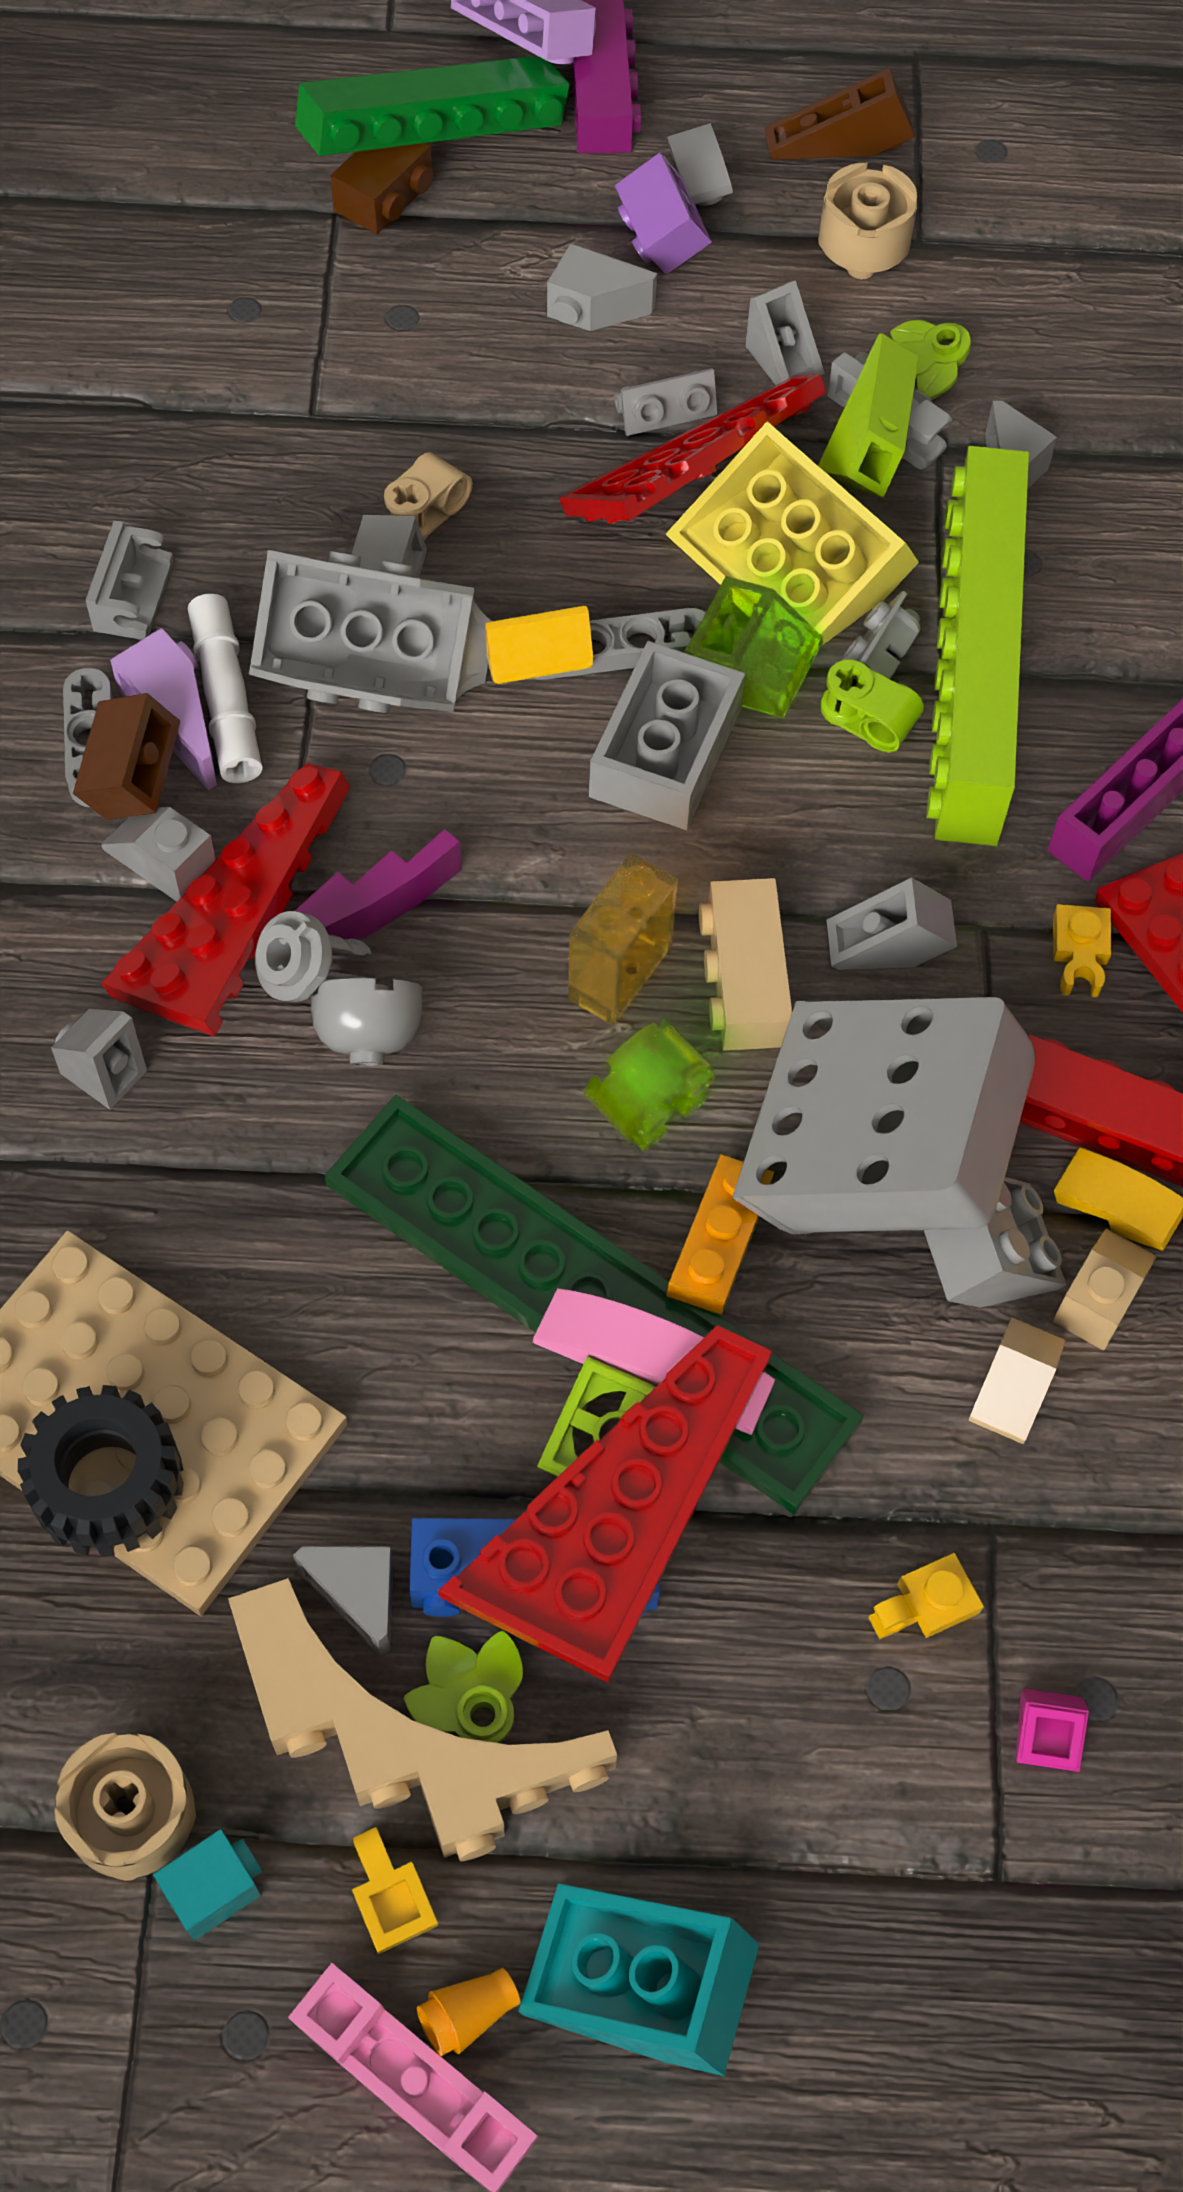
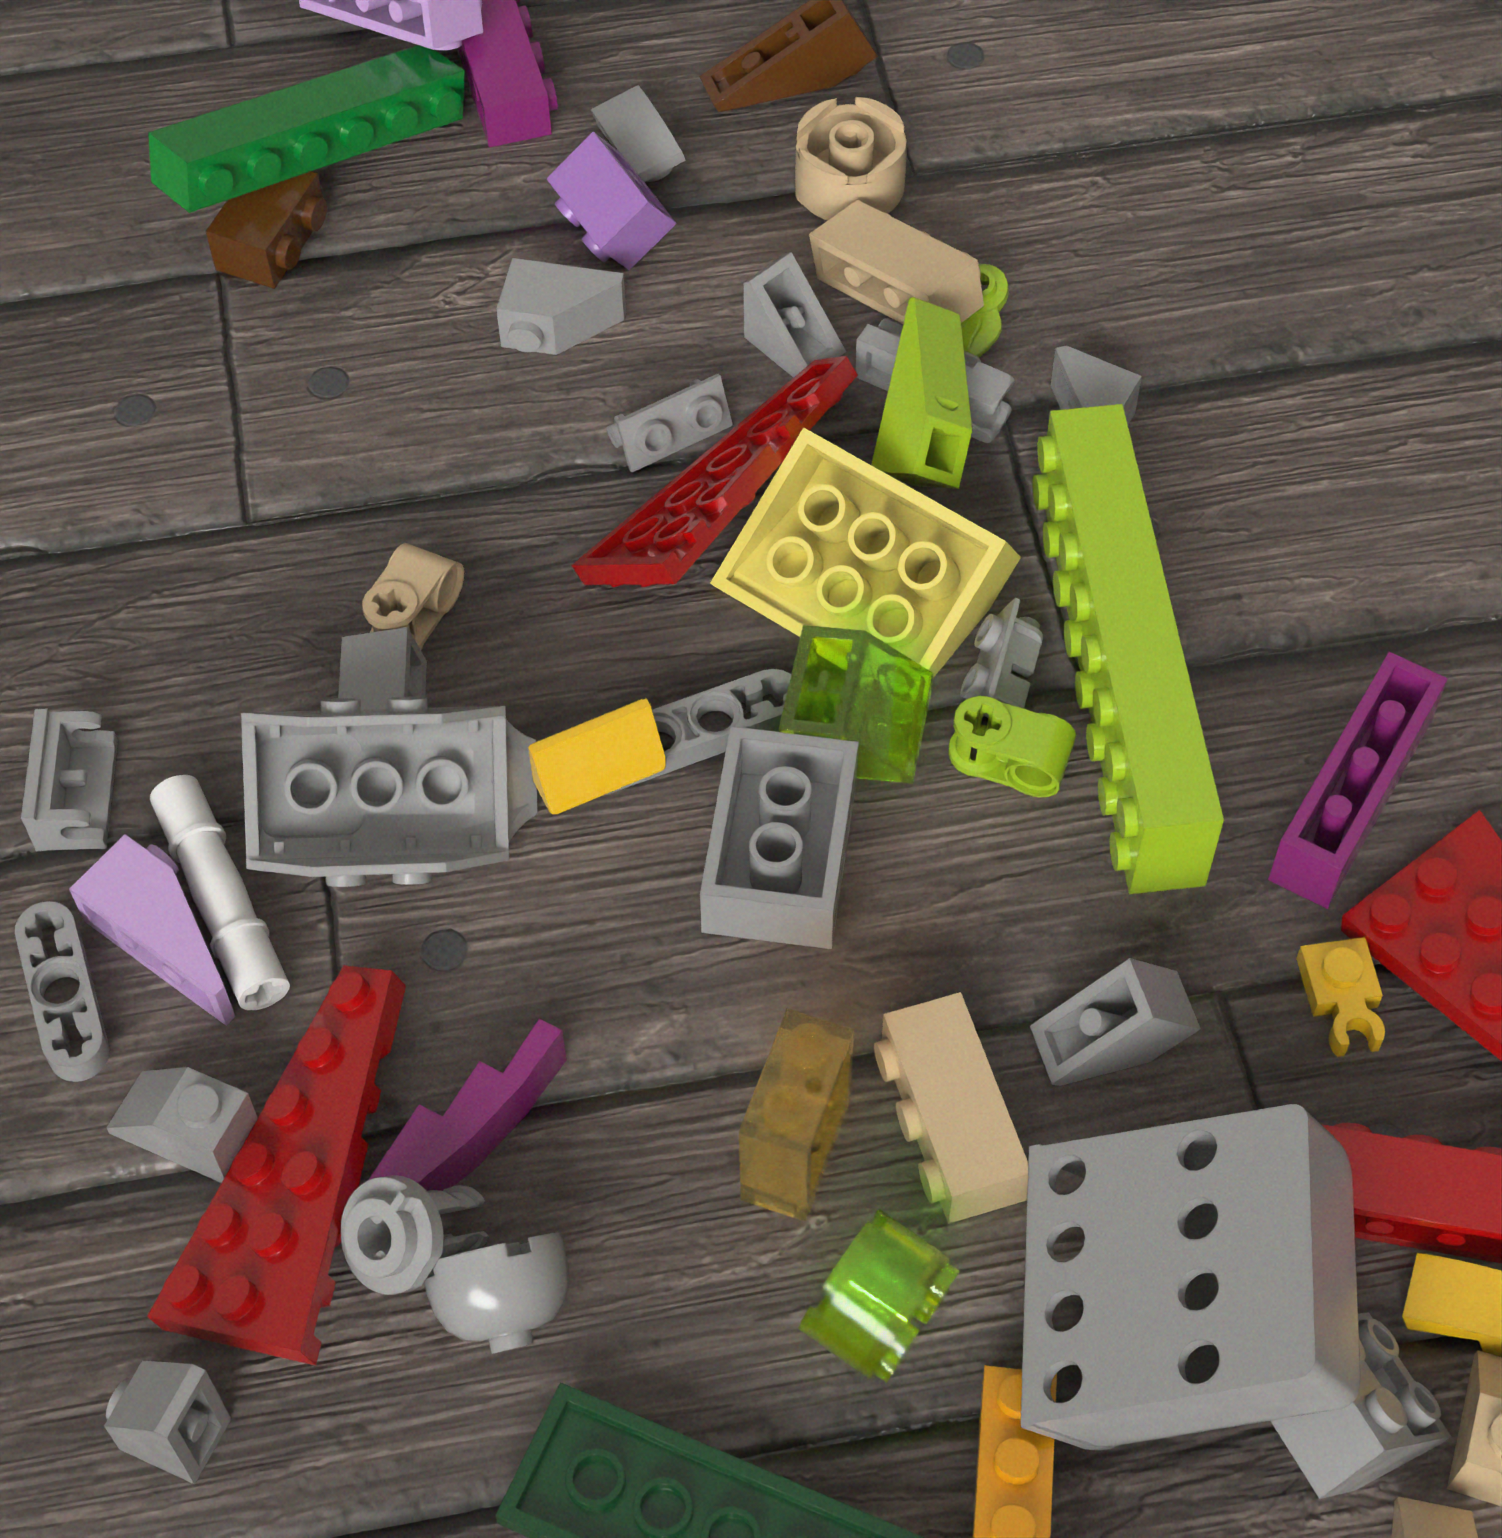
camera: 10 degrees left, 5 degrees down
(126, 756) = (118, 1013): reddish brown brick -> none
(870, 300) = (889, 262): none -> tan brick

